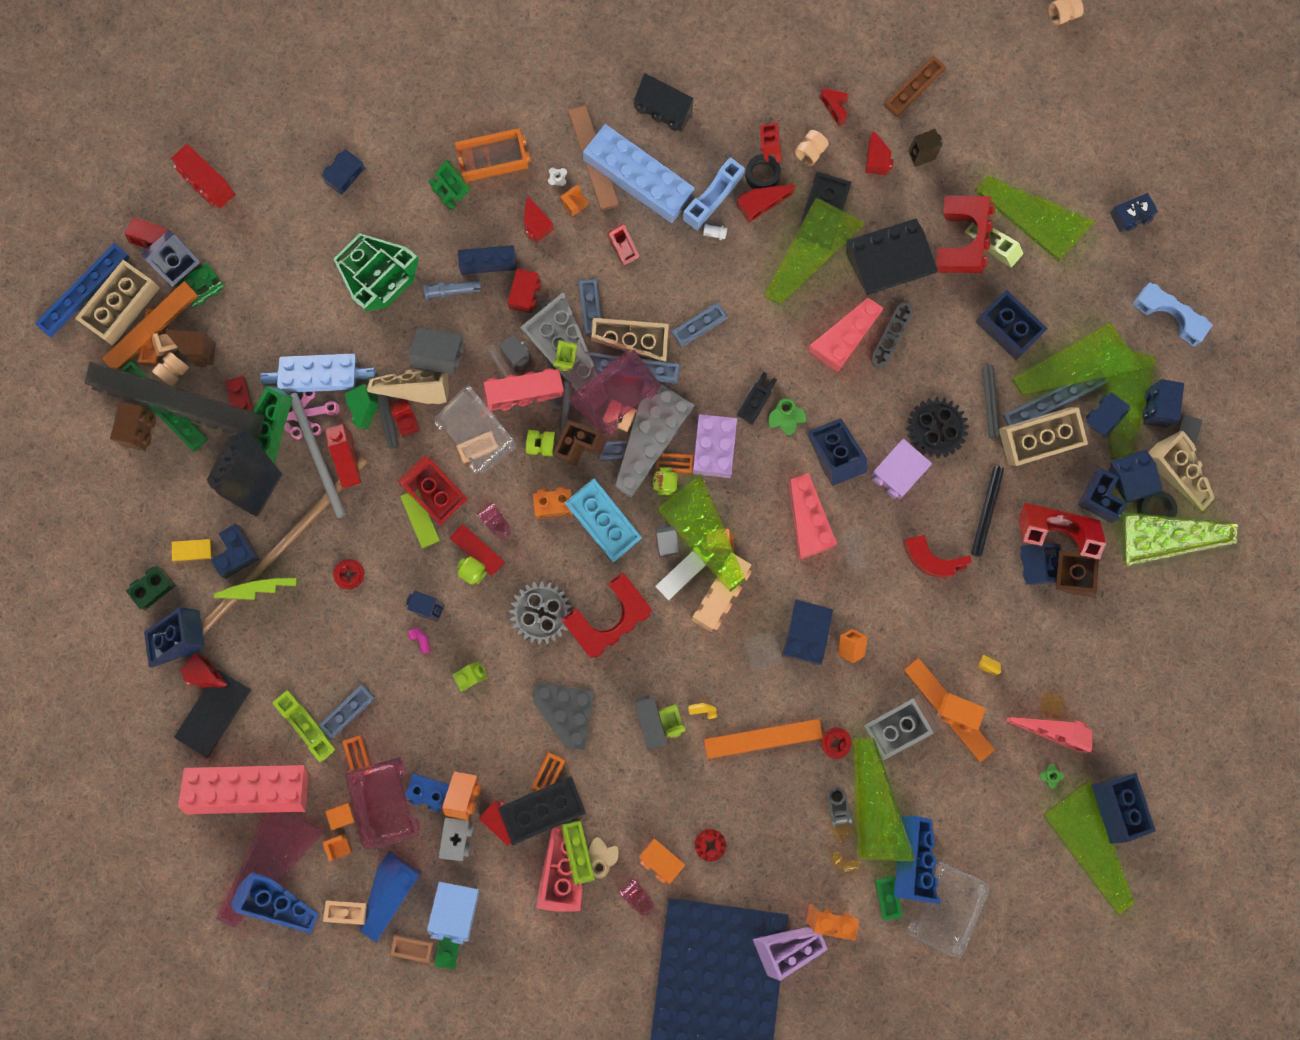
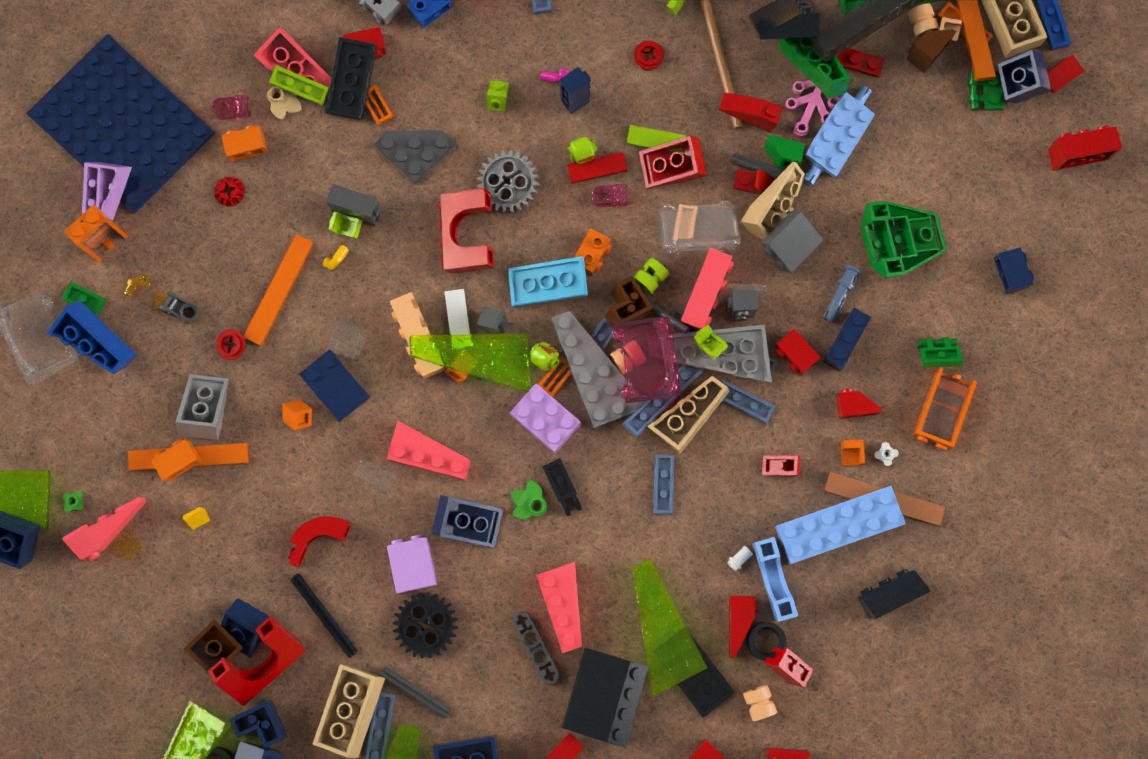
camera: 130 degrees right, 0 degrees up
(317, 456) = (766, 89): light grey piece -> none
(461, 795) = (406, 25): orange brick -> none
(878, 819) = (147, 332): clear neon green wing -> none

